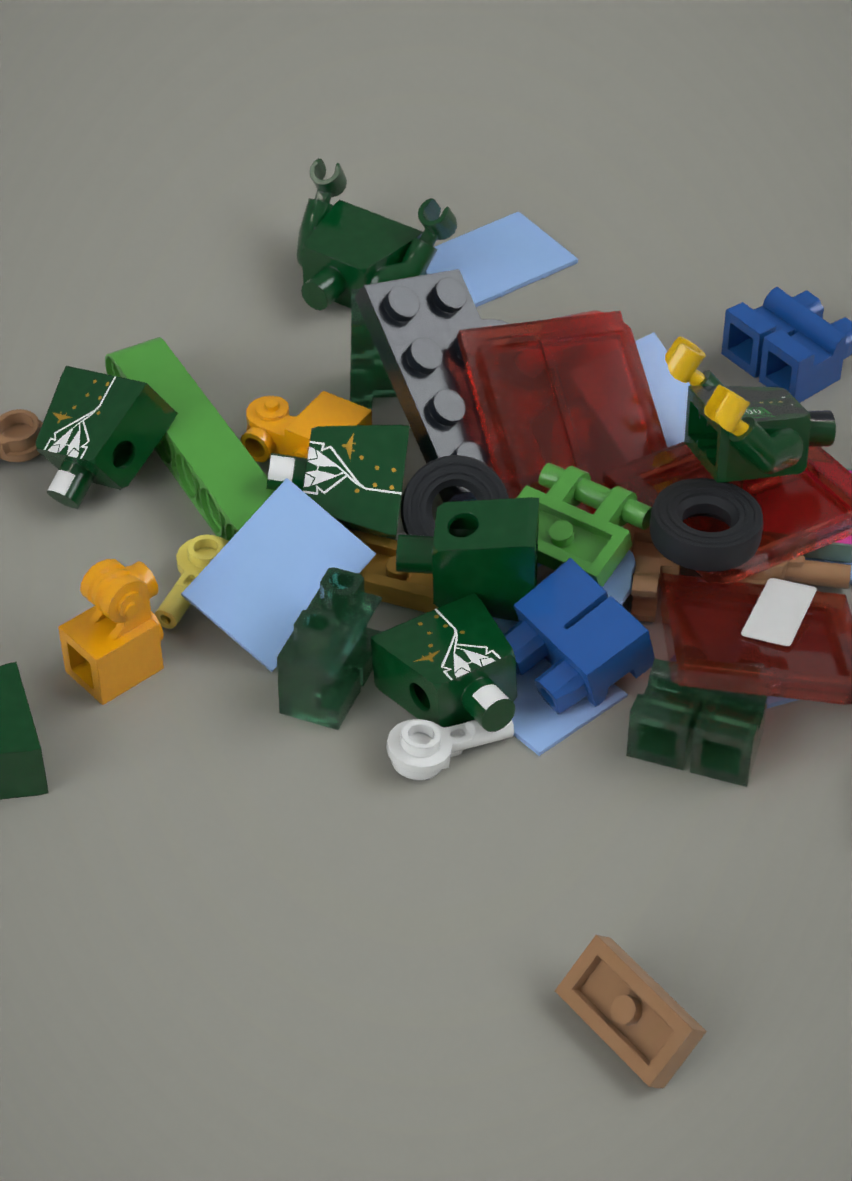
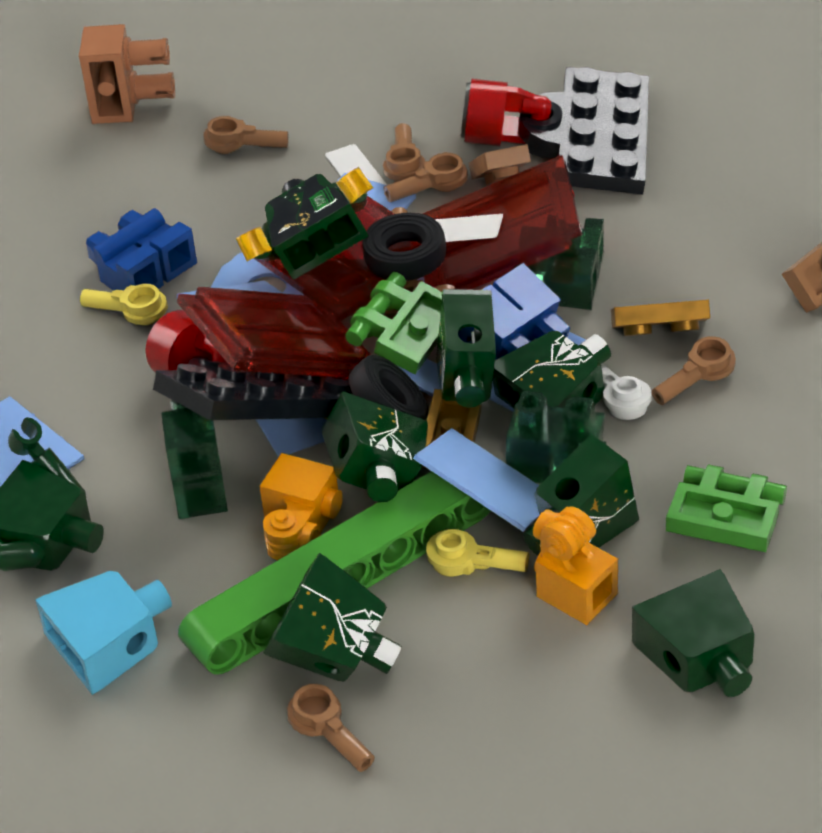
camera: 95 degrees left, 0 degrees up
(168, 799) = (726, 507): none -> bright green plate
(184, 296) = (102, 625): none -> medium azure torso
(210, 638) = (594, 482): none -> dark green torso
(467, 840) = (708, 360): none -> medium nougat plate
(567, 800) = (680, 316): none -> pearl gold plate
(709, 337) = (139, 303): none -> light yellow plate

